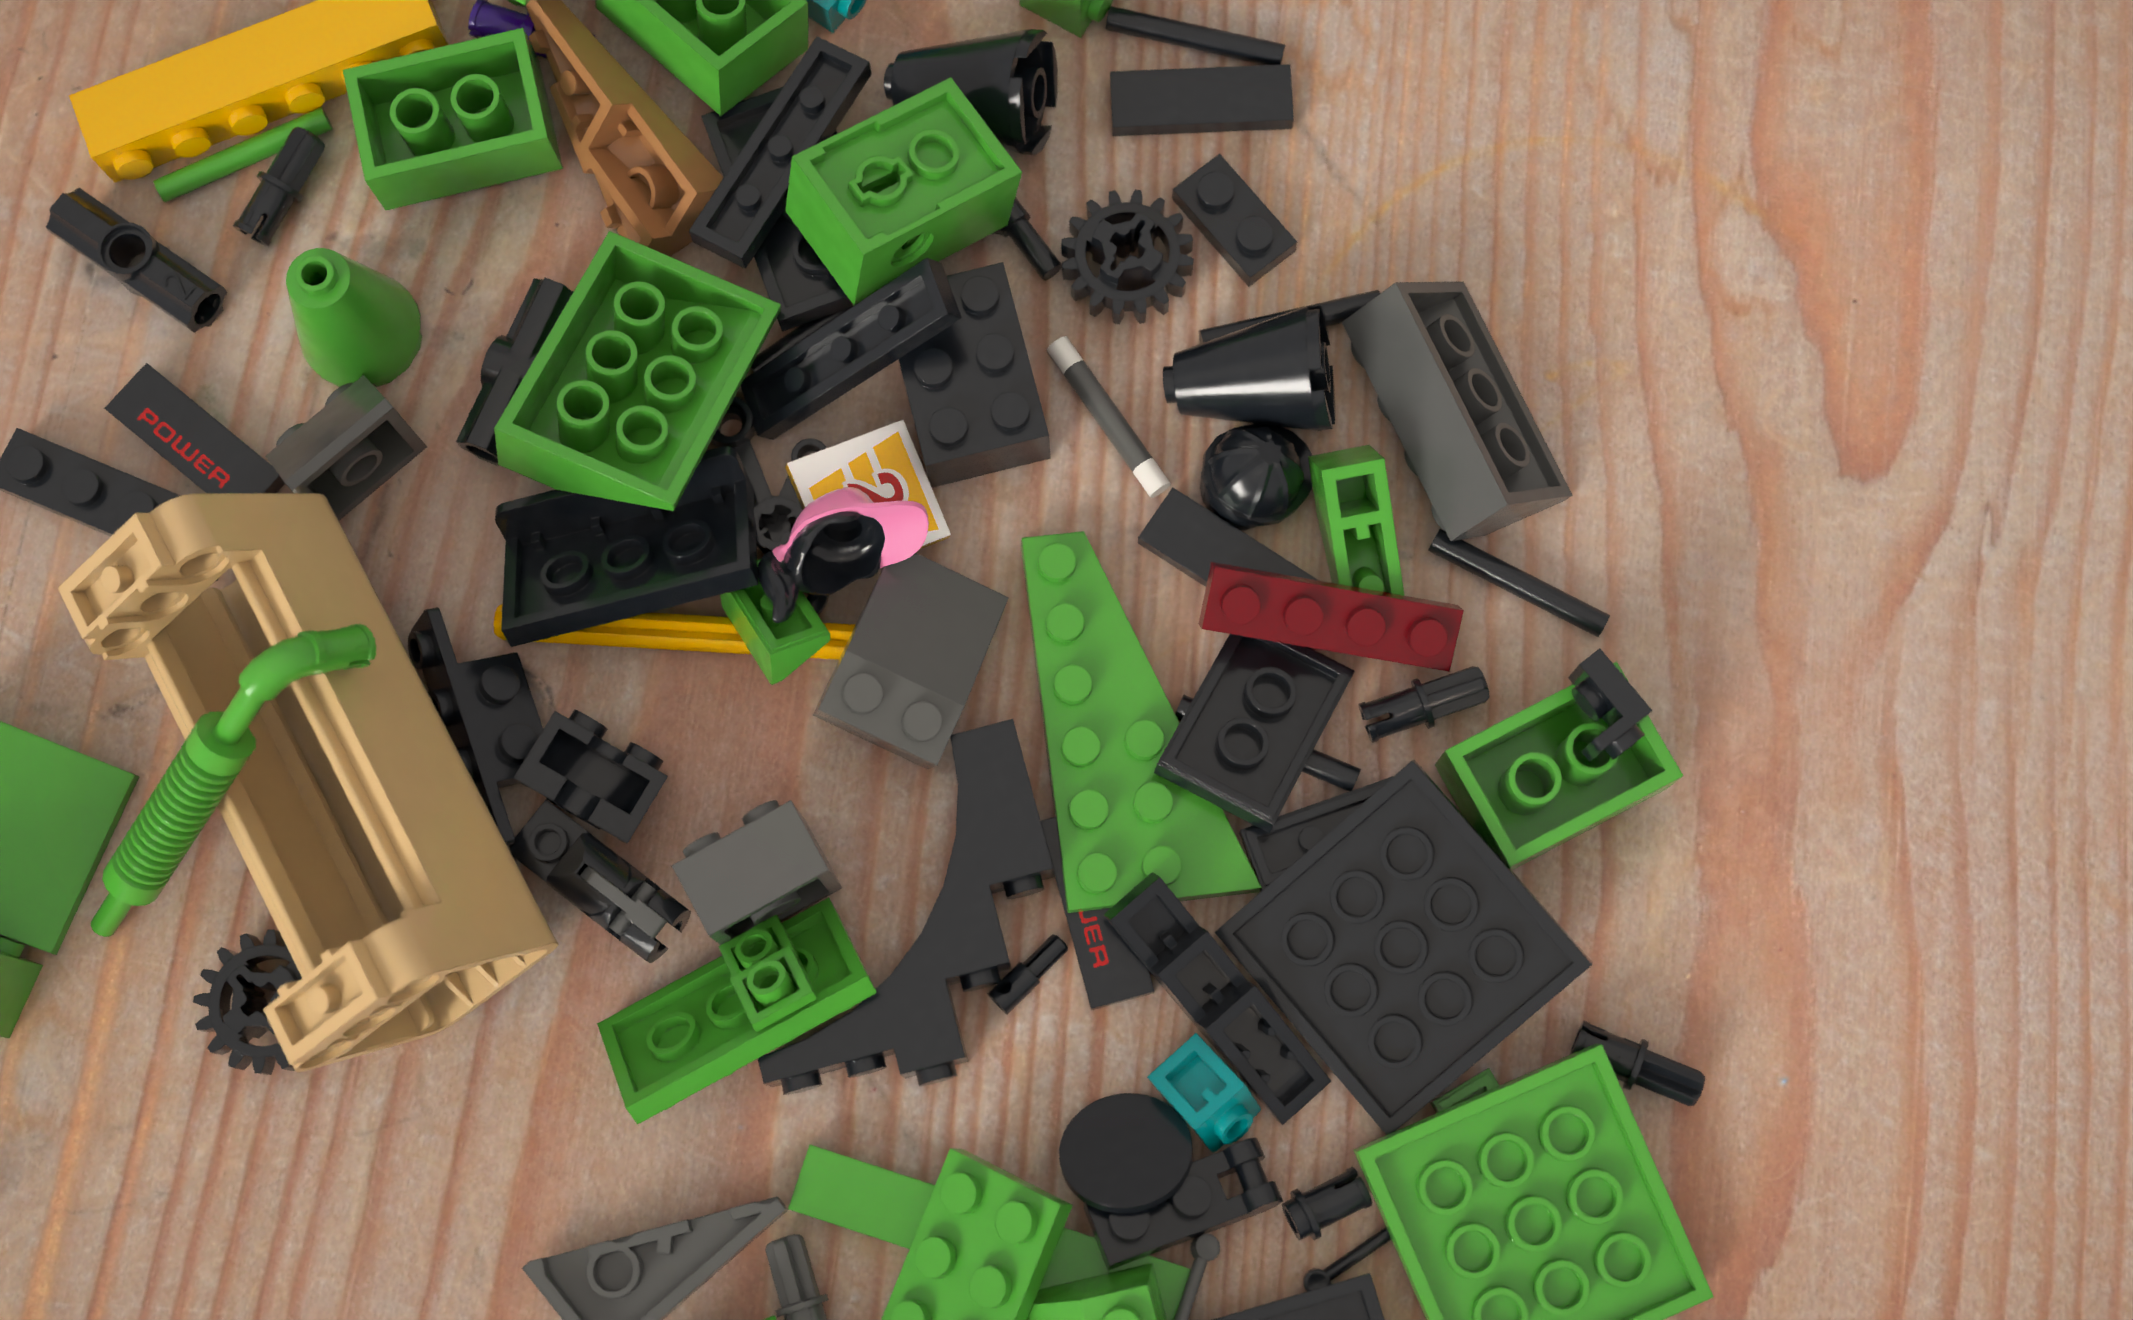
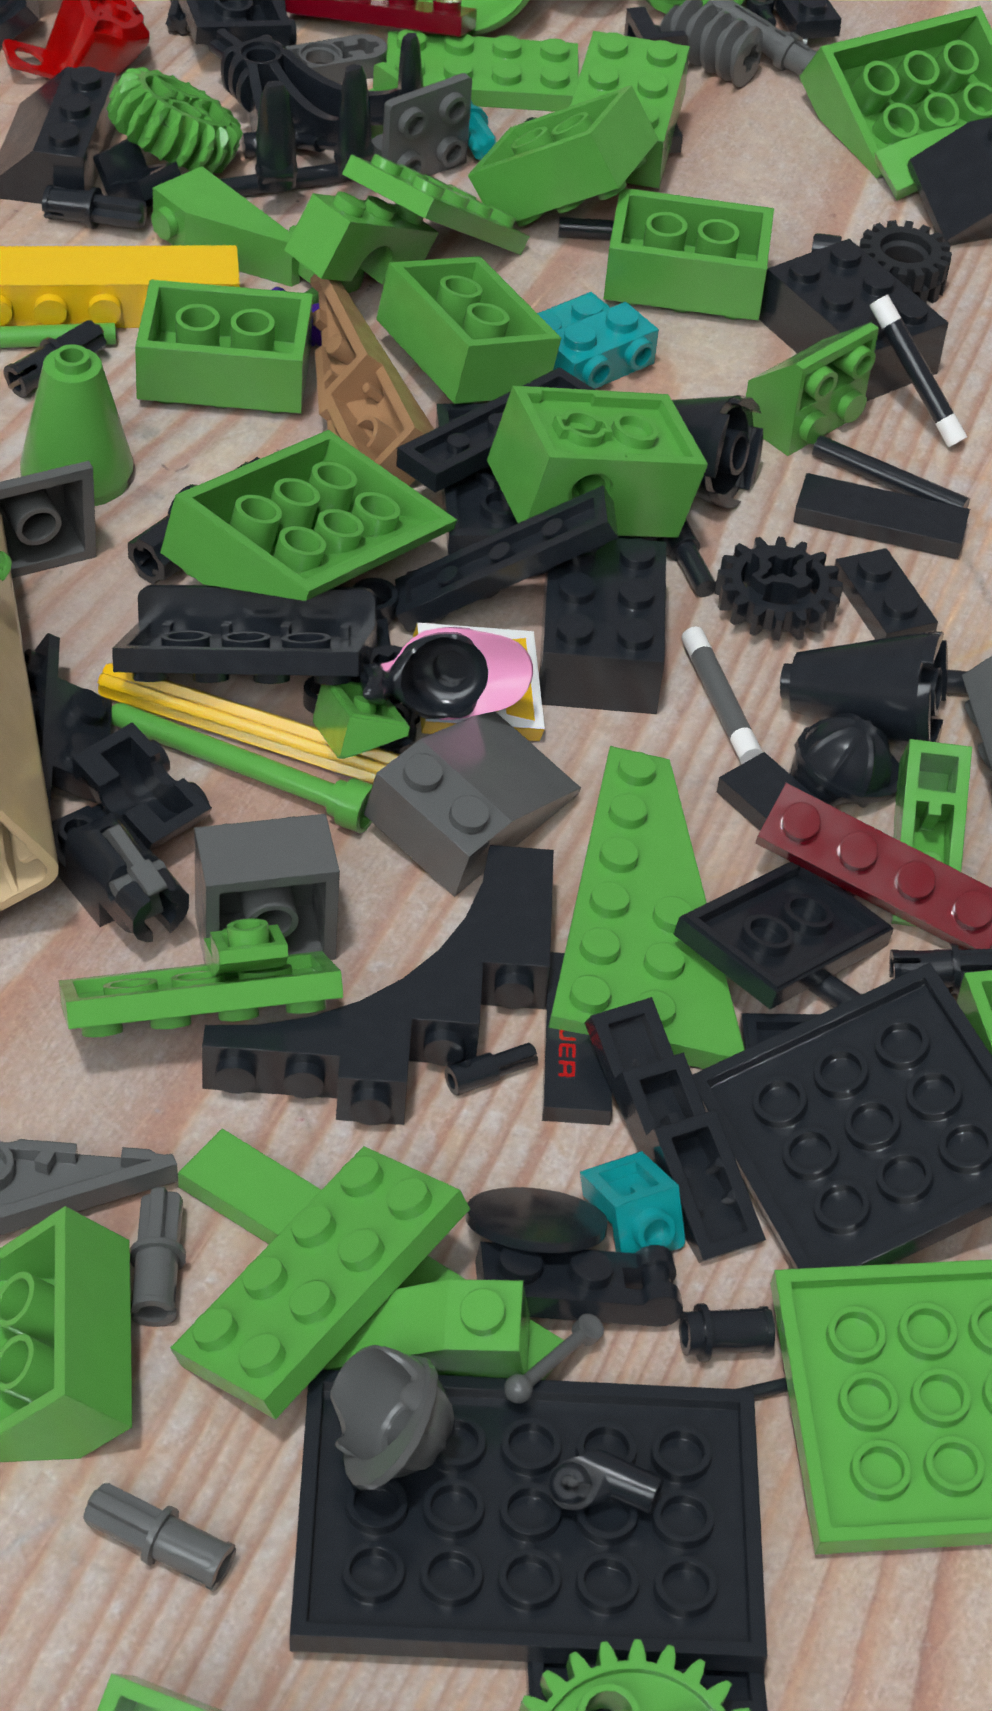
camera: 10 degrees right, 30 degrees down
(788, 701) = (342, 800): none -> bright green piece

